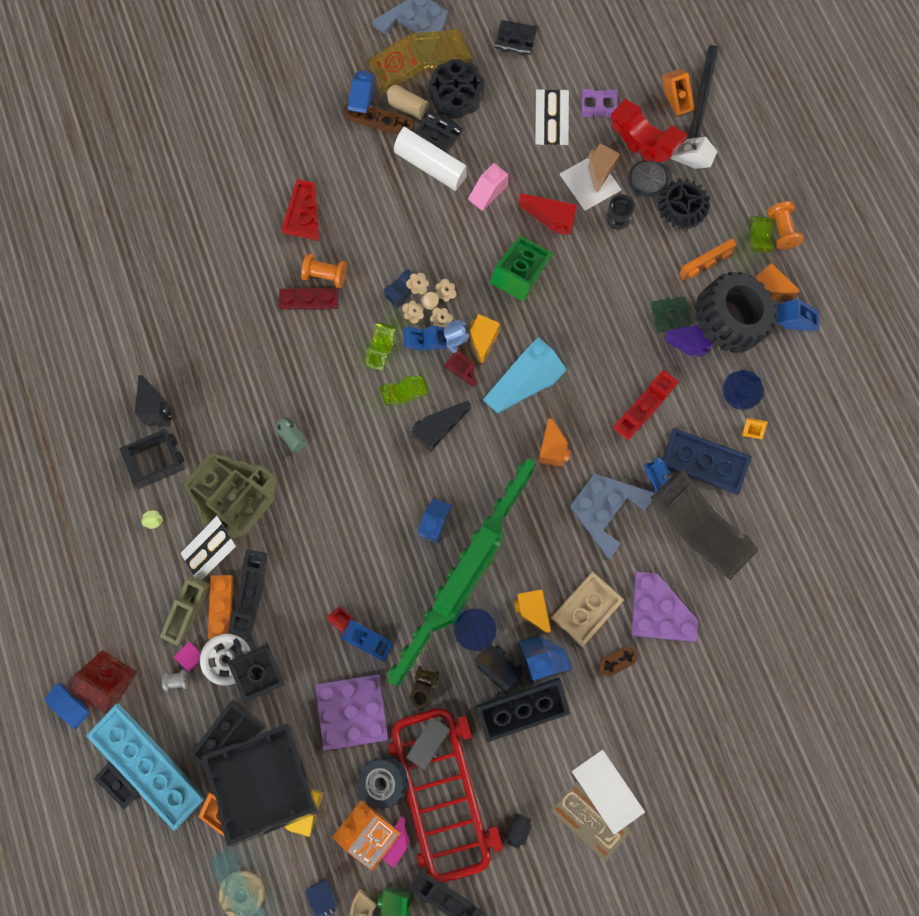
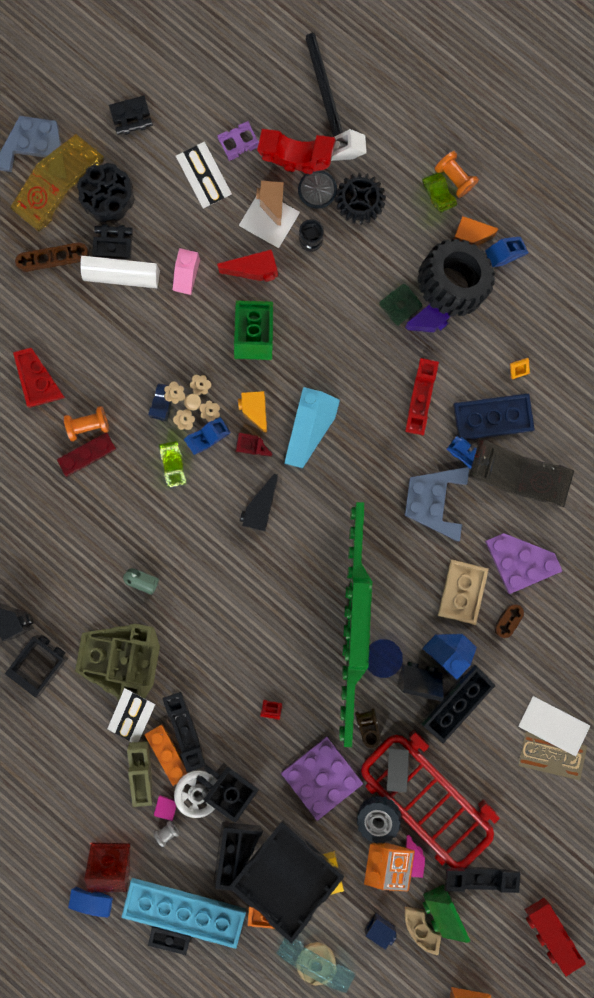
camera: 30 degrees left, 10 degrees up
(151, 519) = (67, 716): yellowish green plate -> none
(361, 91) = (24, 241): blue slope -> none
(367, 640) = (302, 715): blue slope -> none
(407, 102) = (69, 228): tan brick -> none
(407, 390) = (214, 492): clear neon green slope -> none
(434, 520) = (301, 587): blue slope -> none
(456, 334) = (231, 420): medium blue piece -> none
(518, 830) = (502, 795): black brick -> none
(533, 609) = (421, 617): light orange slope -> none
(554, 446) = (365, 472): orange slope -> none
(678, 91) = (302, 94): orange slope -> none
(708, 259) = (407, 240): orange plate -> none
(743, 390) = (493, 339): clear blue tile -> none

